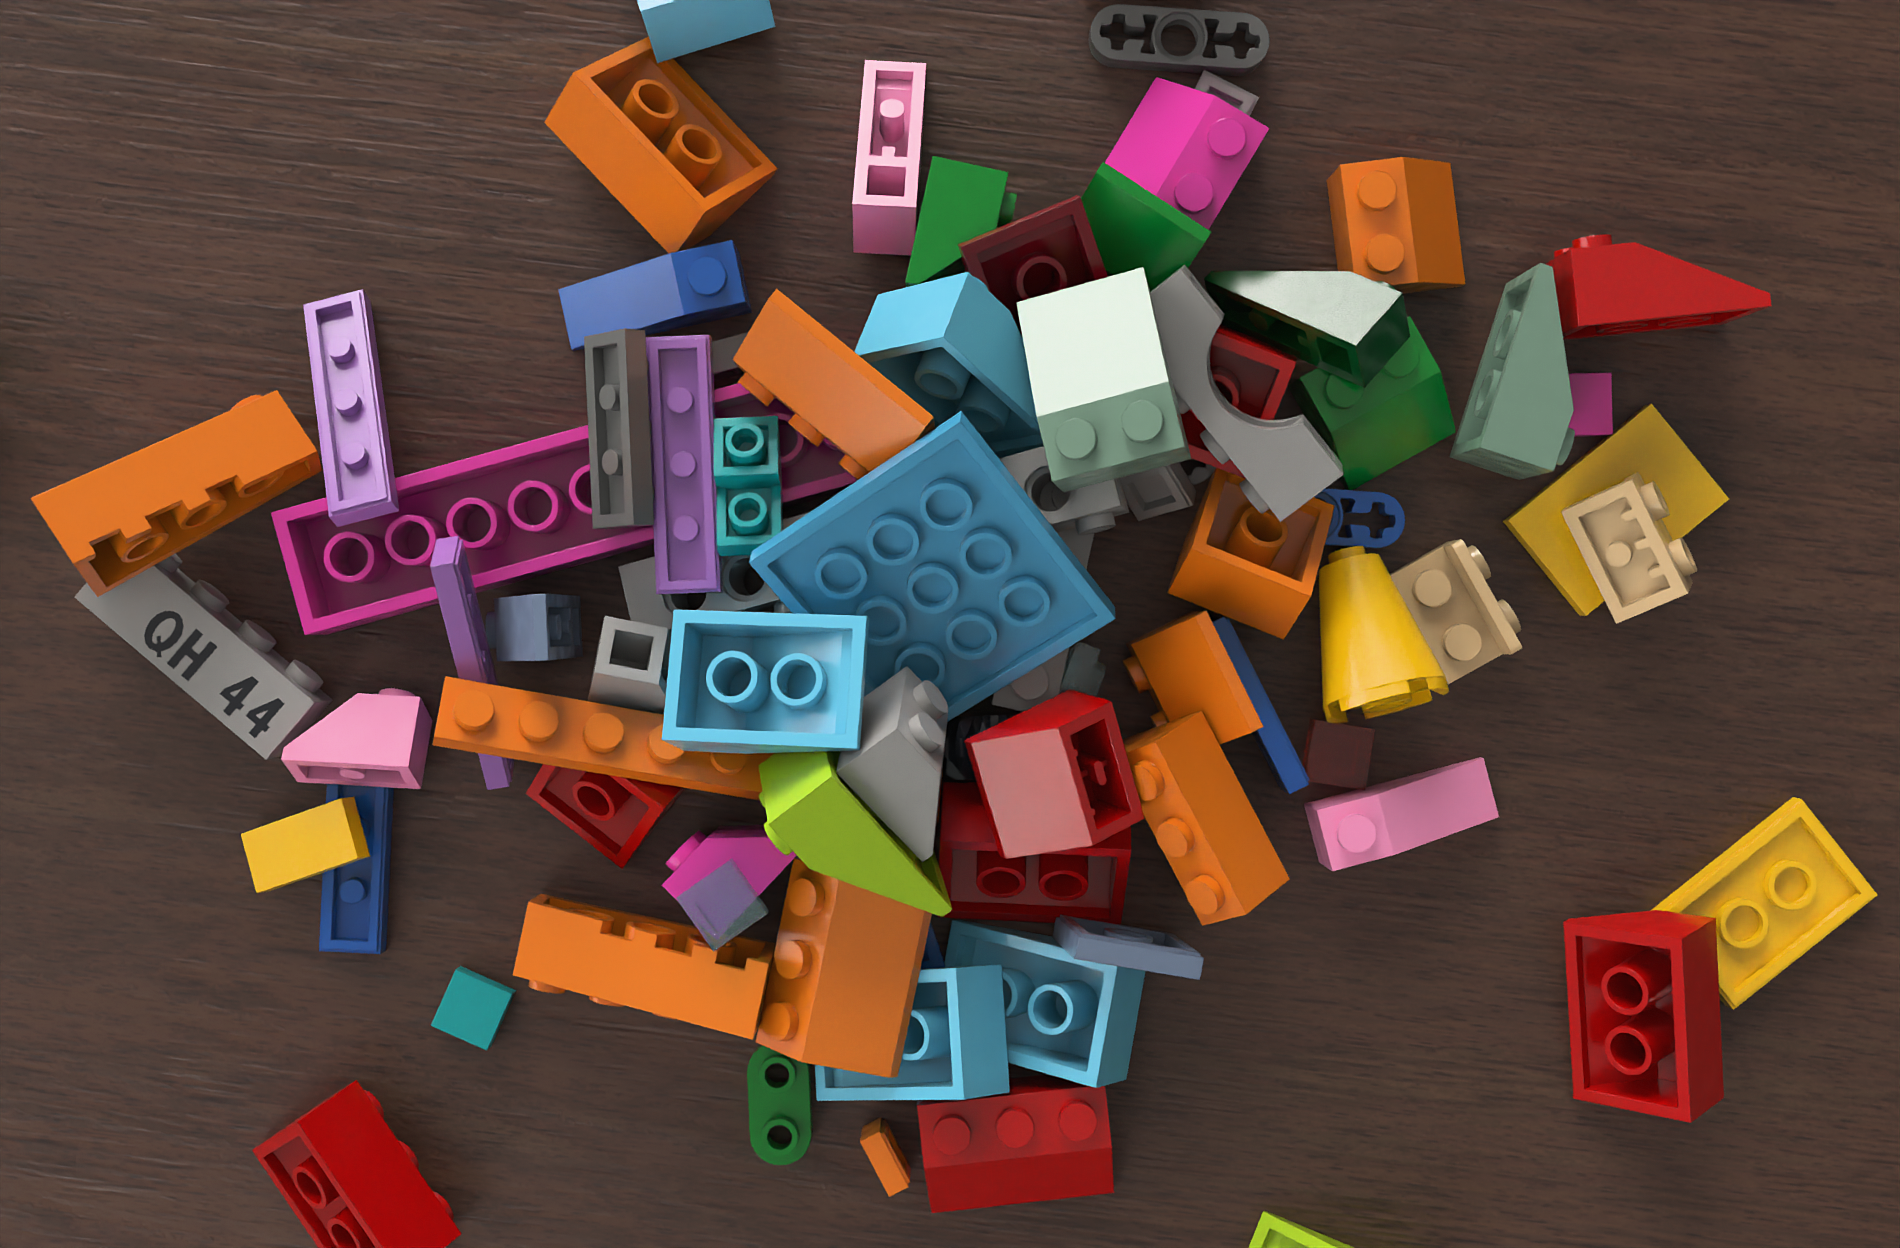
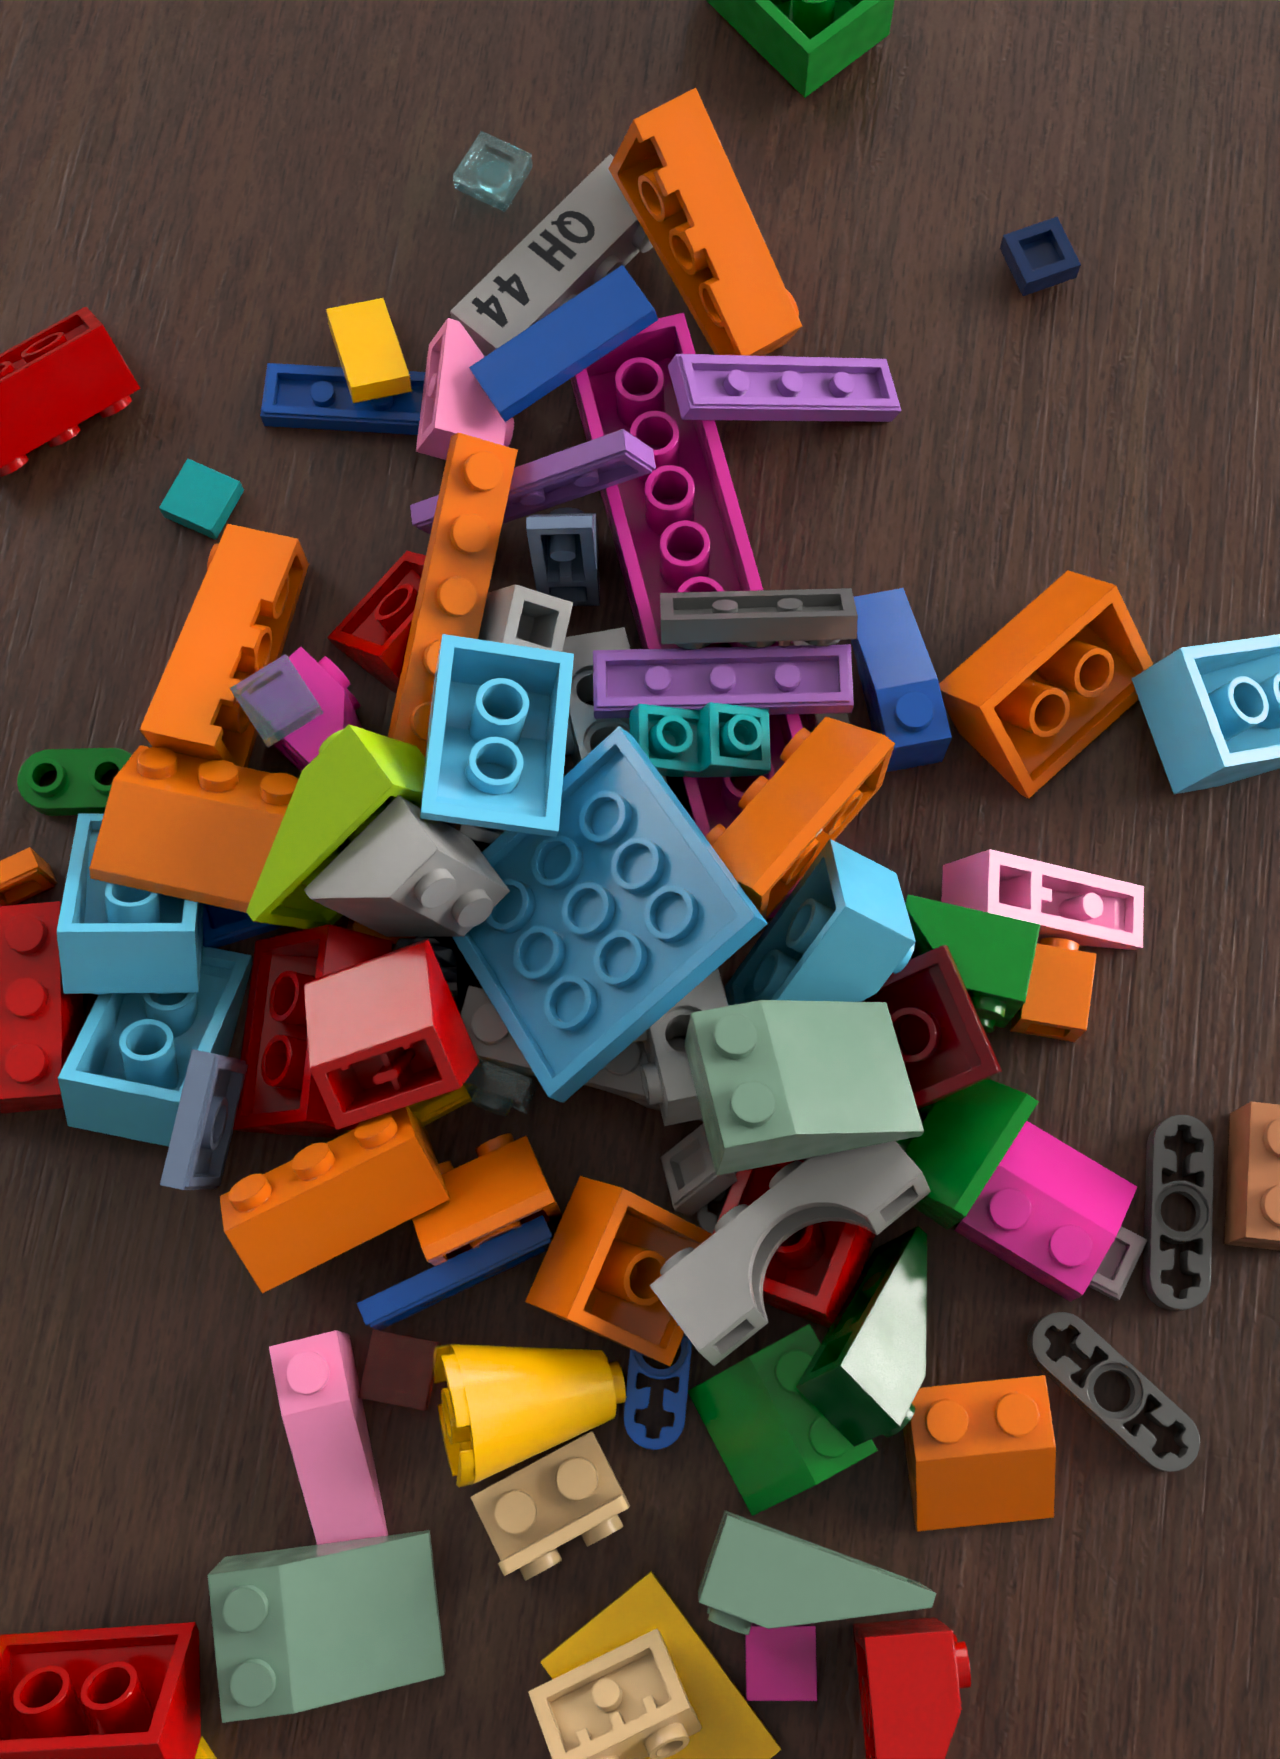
camera: 90 degrees right, 15 degrees down
(86, 724) = (493, 171): none -> clear light blue plate
(181, 141) = (1040, 256): none -> dark blue plate
(312, 635) = (564, 343): none -> blue tile
(974, 138) = (1057, 991): none -> orange brick
(1381, 85) = (1163, 1413): none -> dark grey beam
(1561, 808) = (324, 1624): none -> sand green slope

